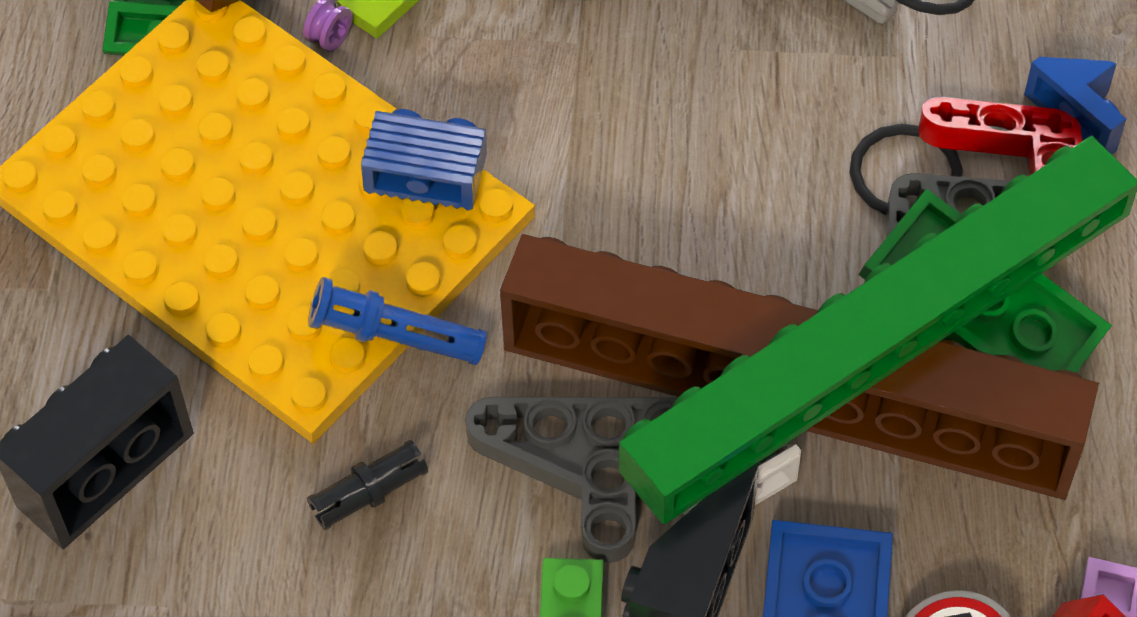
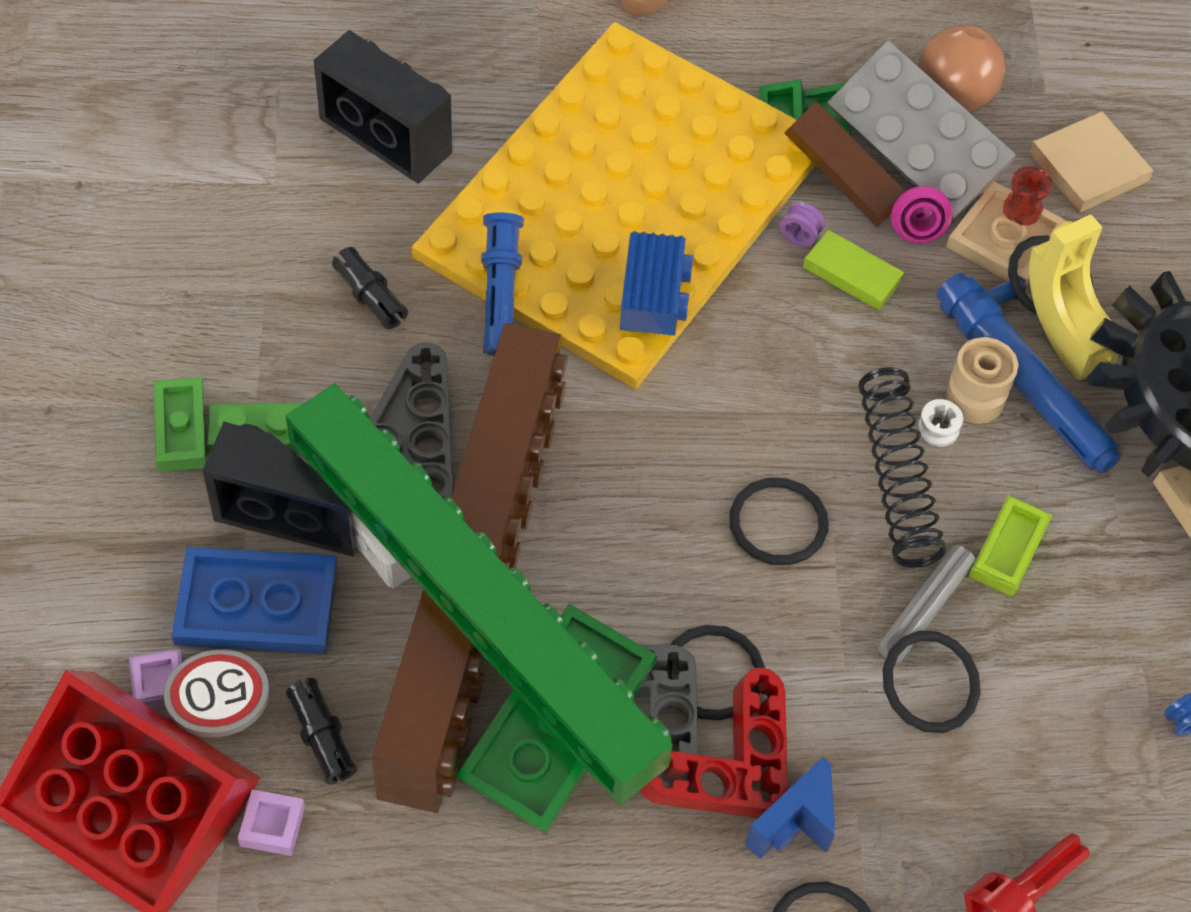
camera: 80 degrees right, 0 degrees up
(712, 133) = (767, 557): none -> black piece
(995, 544) = (321, 731): none -> black pin

